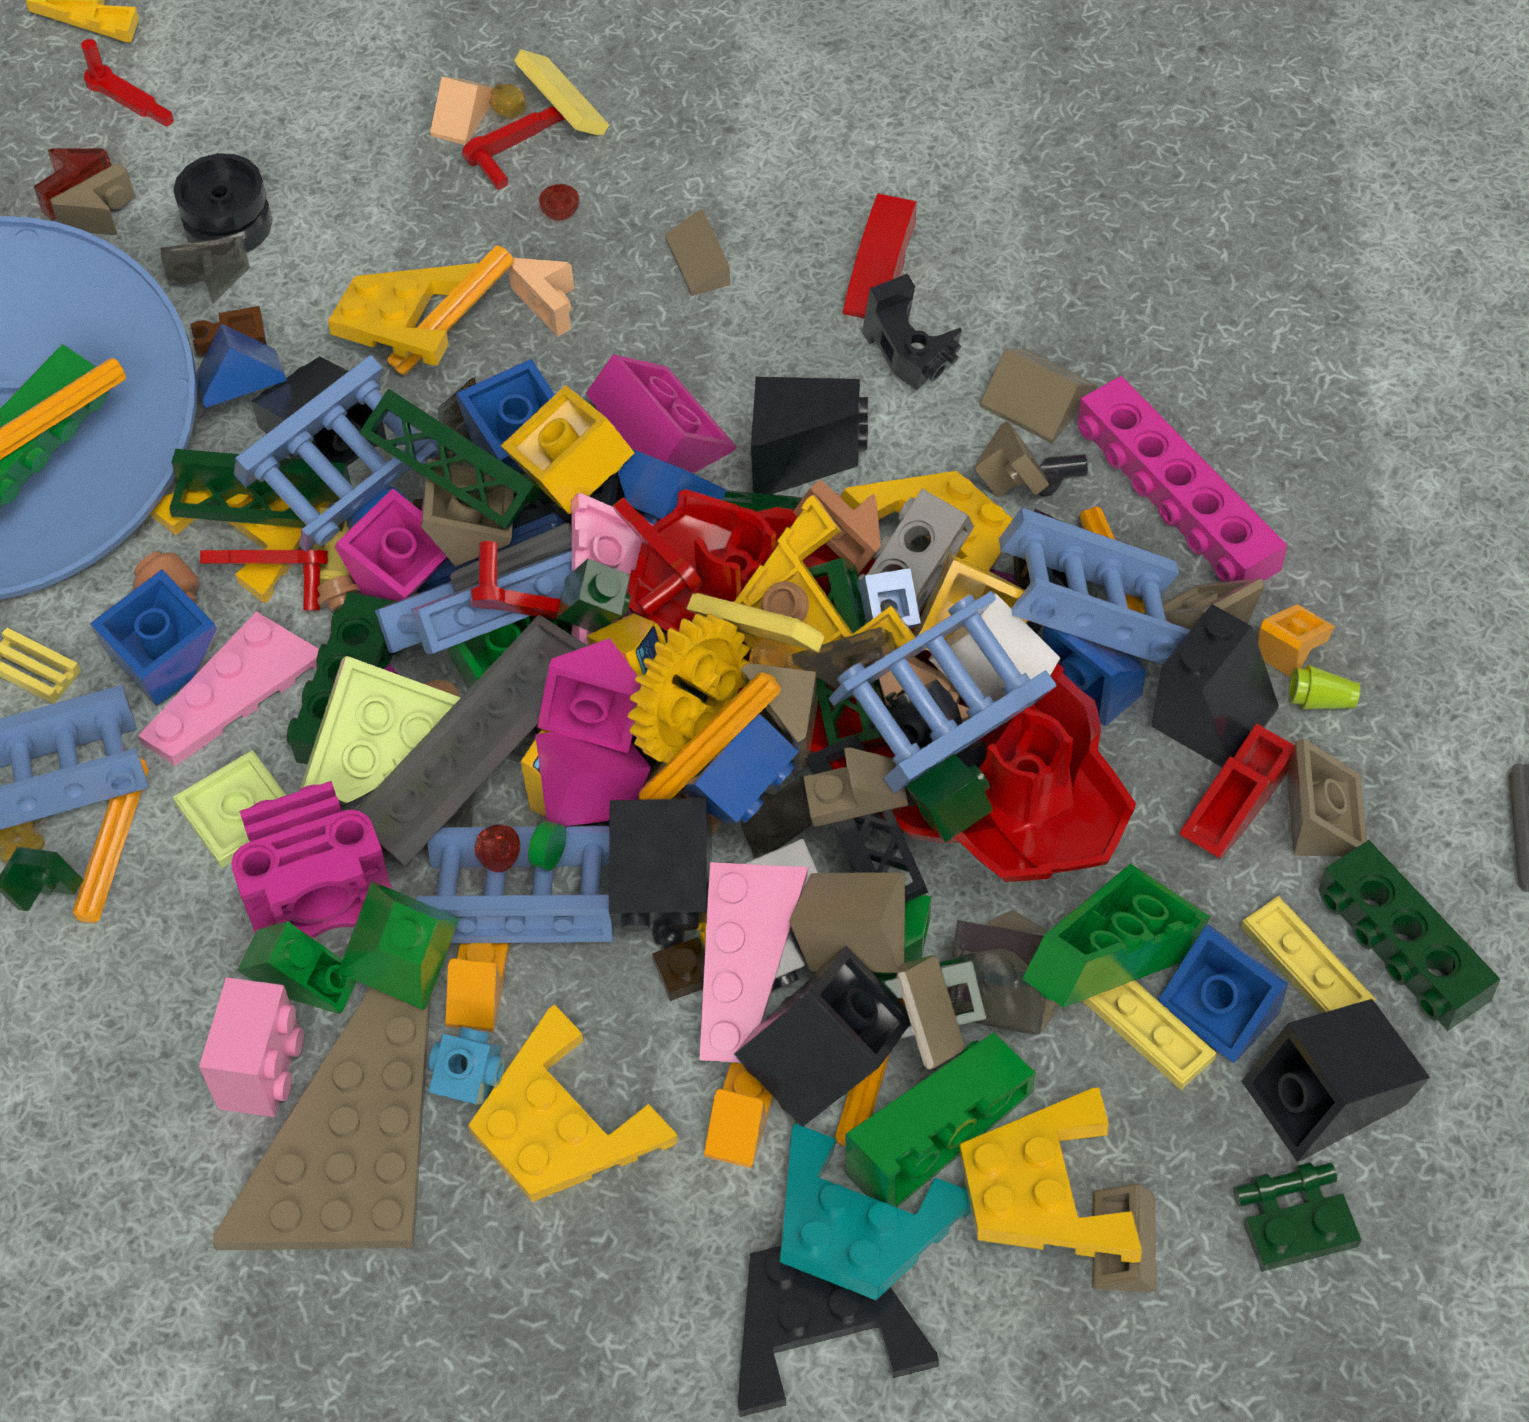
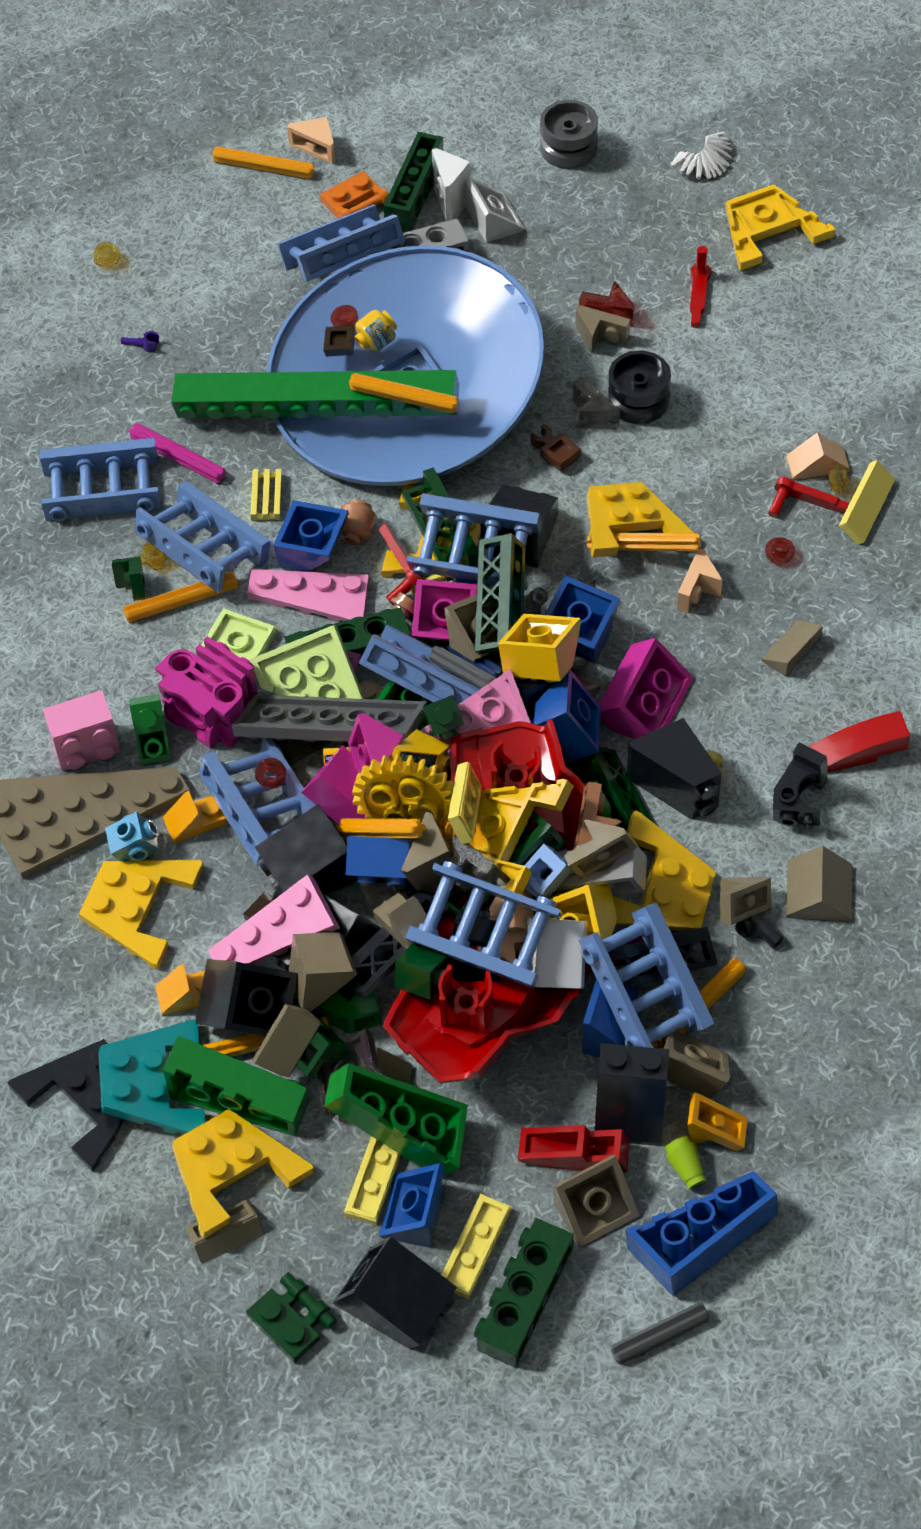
camera: 60 degrees right, 0 degrees up
(236, 367) = (526, 465): blue slope -> none
(398, 945) = (181, 761): green slope -> none
(490, 596) = (408, 664): red piece -> none
(547, 845) = (287, 795): green tile -> none
(683, 573) = (496, 732): red piece -> none
(787, 600) = (493, 812): medium nougat plate -> none
(907, 512) = (606, 846): none -> dark tan slope
(1180, 483) = (769, 1073): dark pink brick -> none
(1435, 727) = (703, 1231): none -> blue wedge

